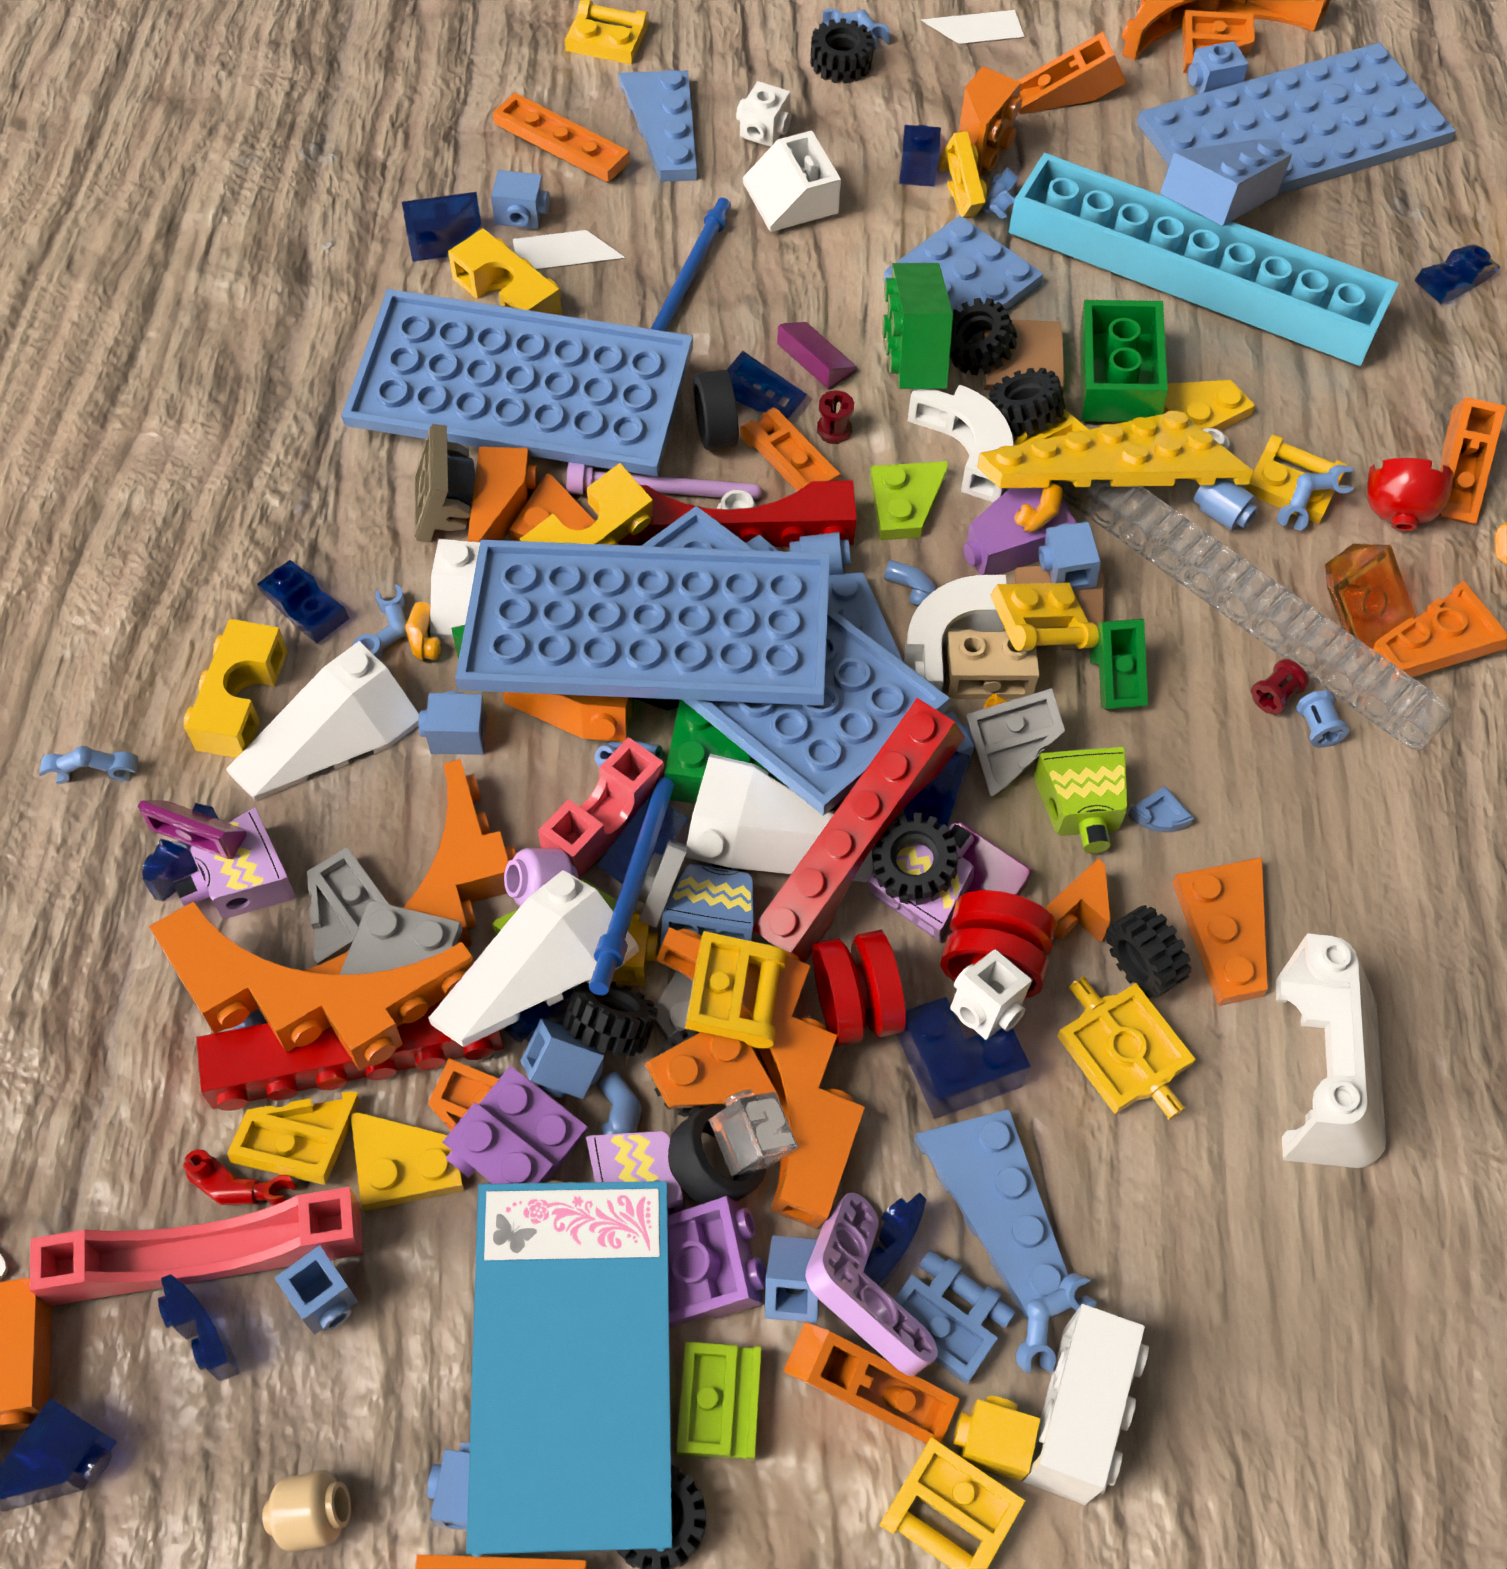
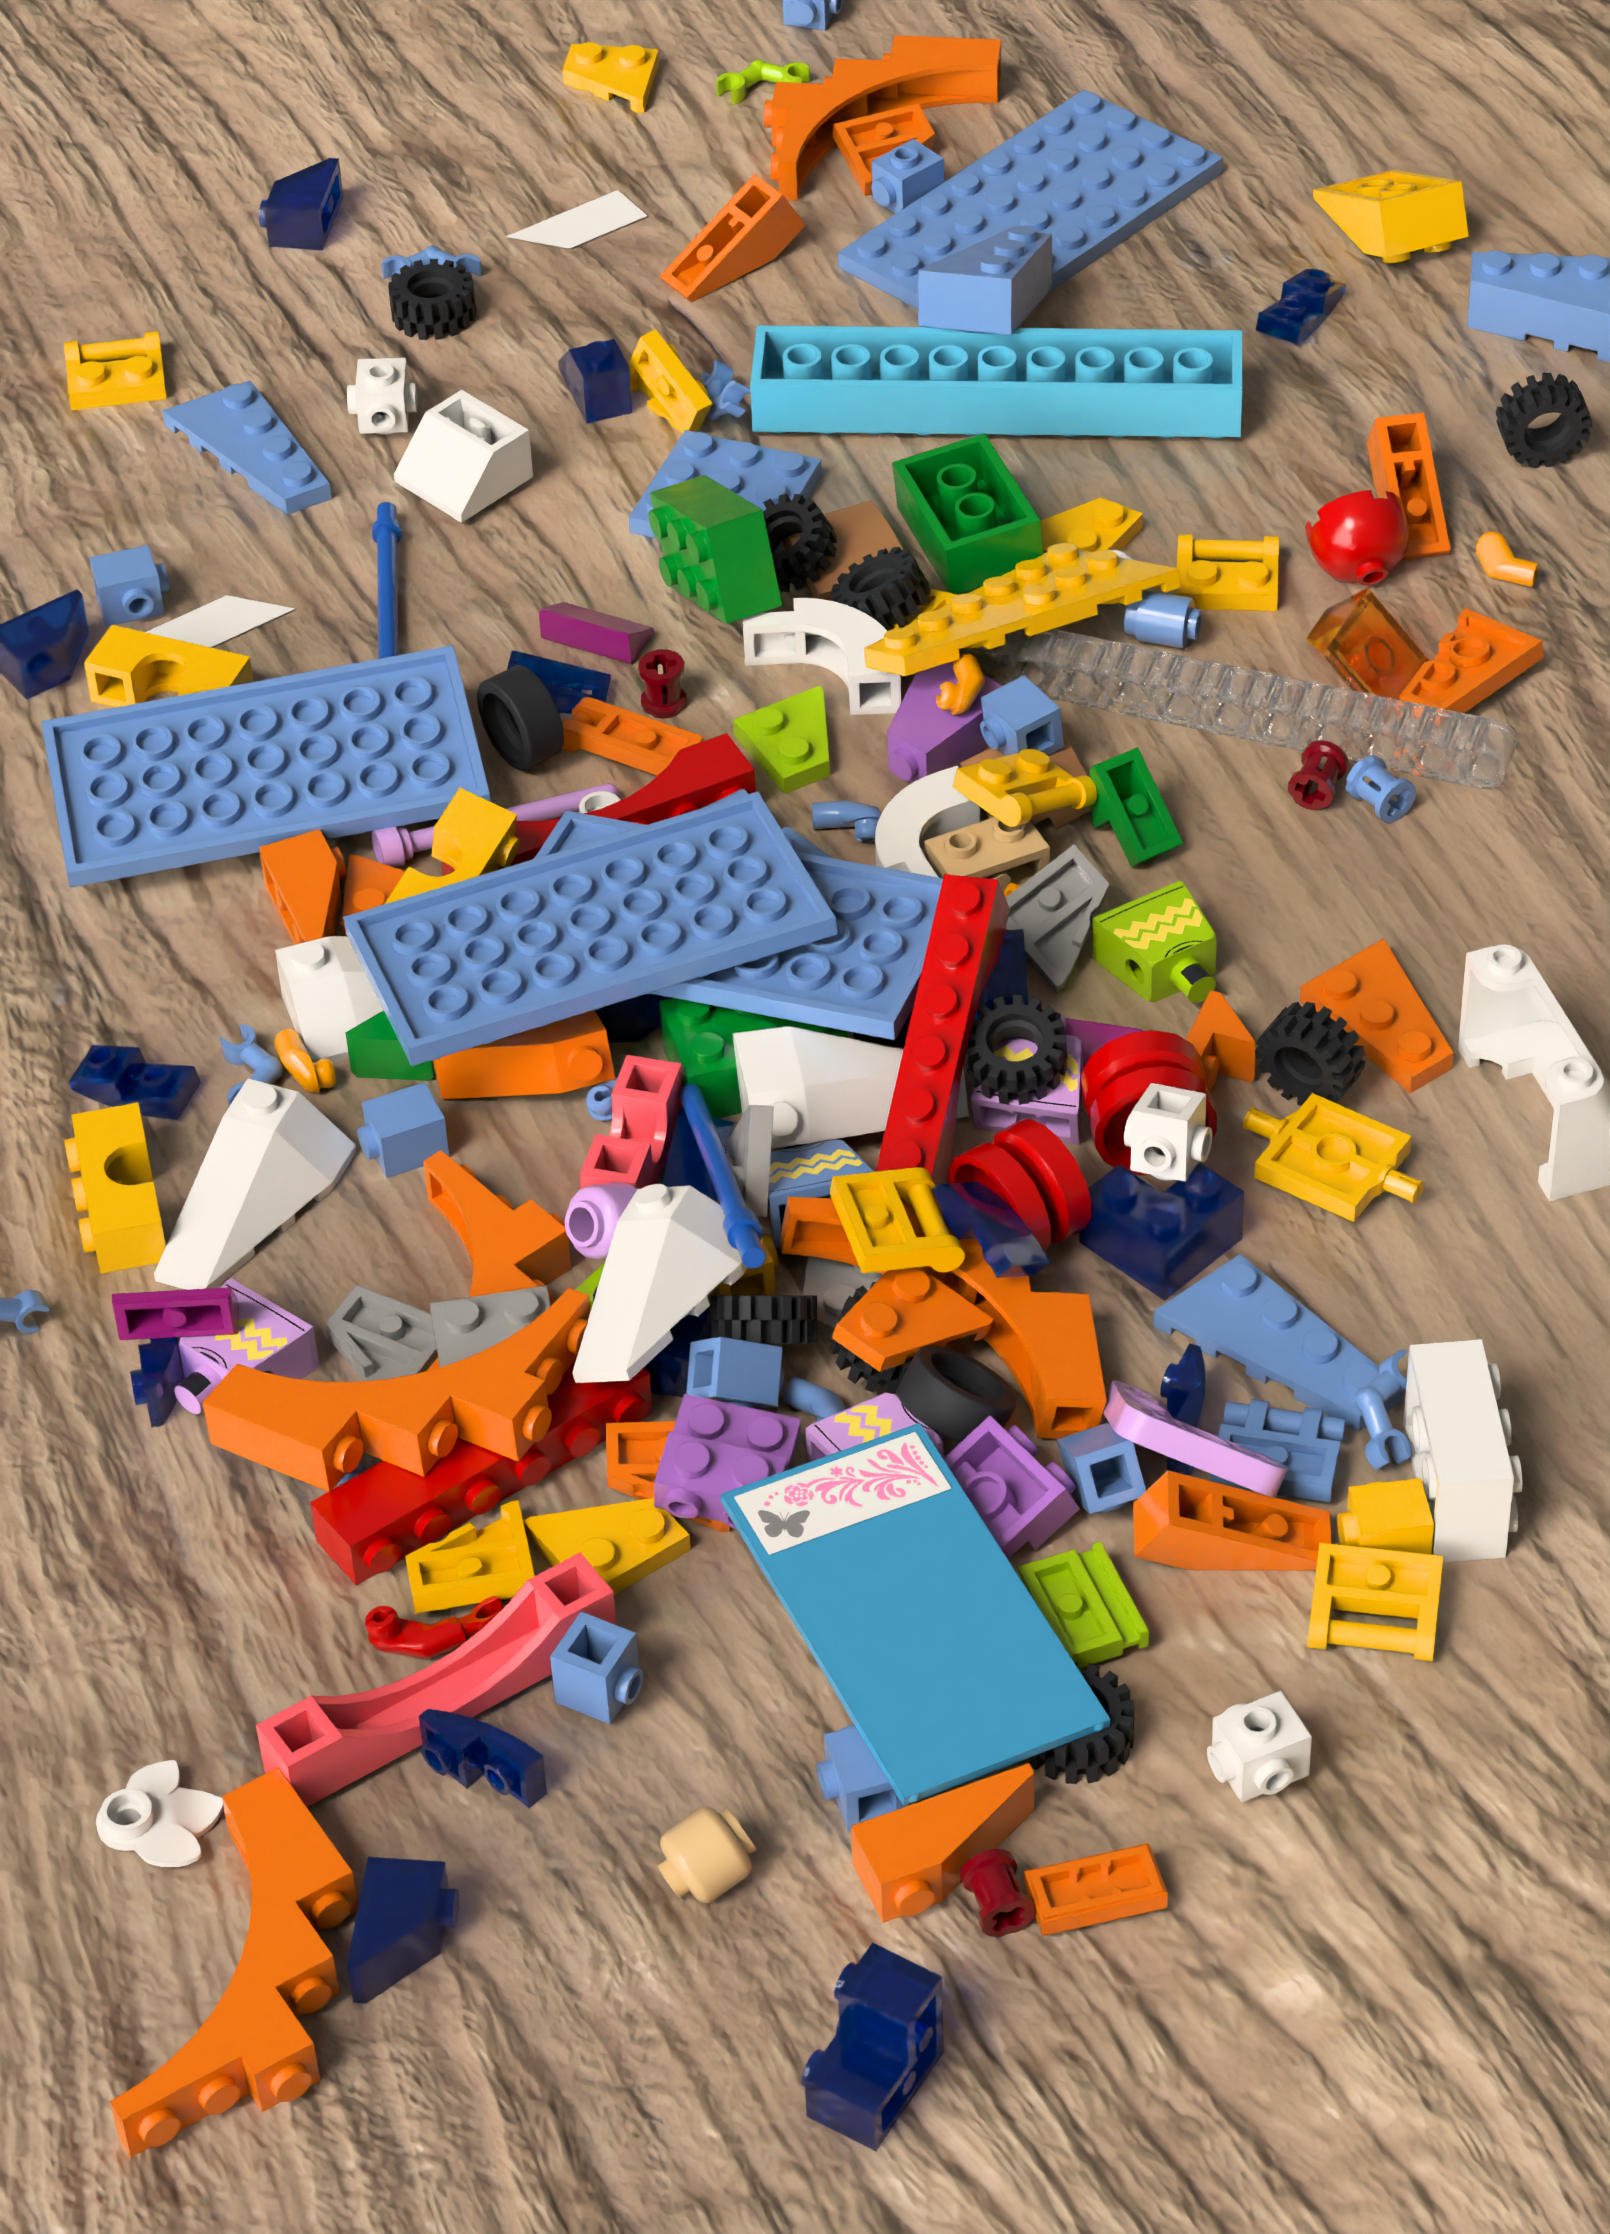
camera: 20 degrees left, 15 degrees down
(442, 485) = (236, 903): dark tan piece -> none
(561, 137) = (135, 503): orange plate -> none
(752, 1132) = (986, 1346): clear brick -> none
(813, 1022) = (981, 1214): none -> clear blue slope
(989, 115) = (664, 299): orange slope -> none
(1161, 812) = (1253, 939): medium blue tile -> none
(1305, 485) = (1244, 586): medium blue arm -> none

